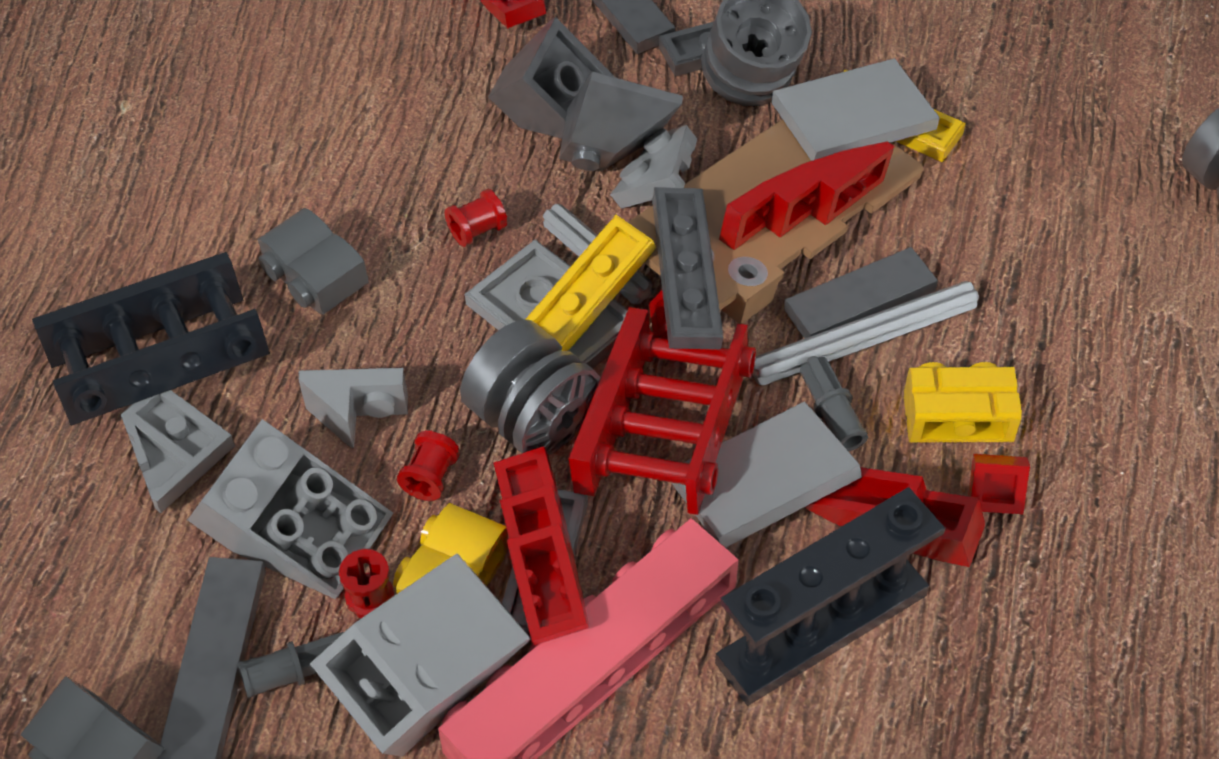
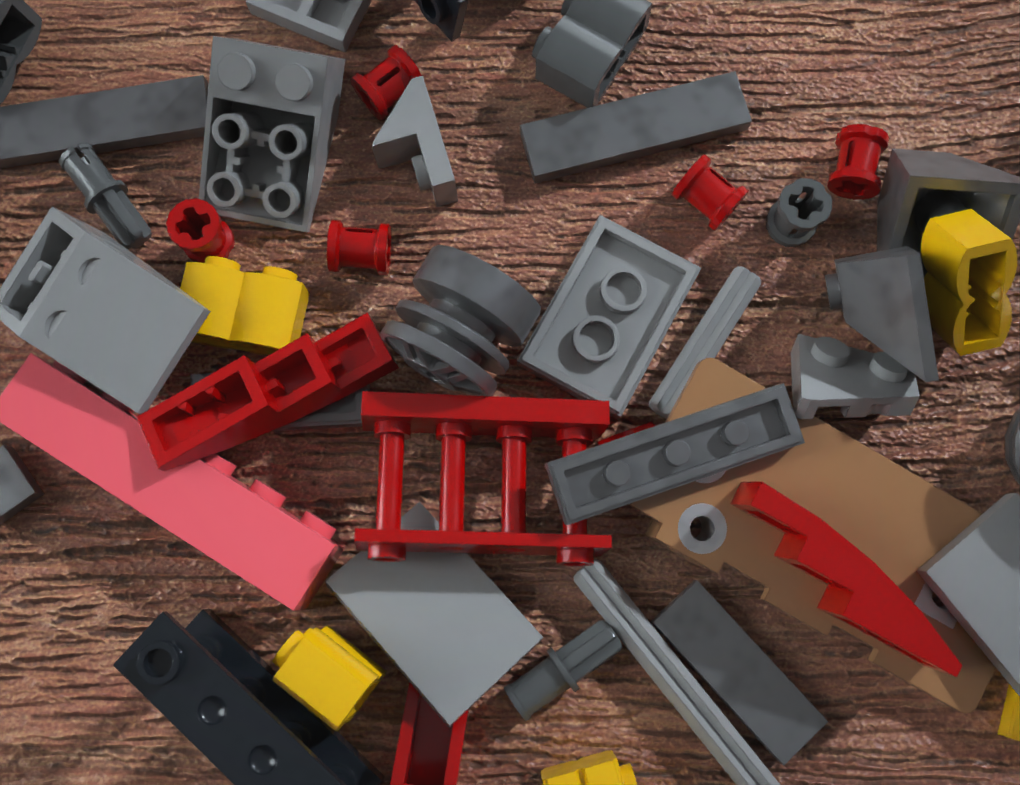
camera: 75 degrees right, 25 degrees up
(284, 411) = (385, 82): none -> red bush
(396, 259) = (635, 127): none -> flat silver tile
(499, 120) = (858, 162): none -> red bush
(515, 174) = (813, 211): none -> dark grey bush
(592, 282) = (625, 347): yellow tile -> none
(608, 55) = (968, 280): none -> yellow brick
(796, 526) = (326, 674): none -> yellow brick

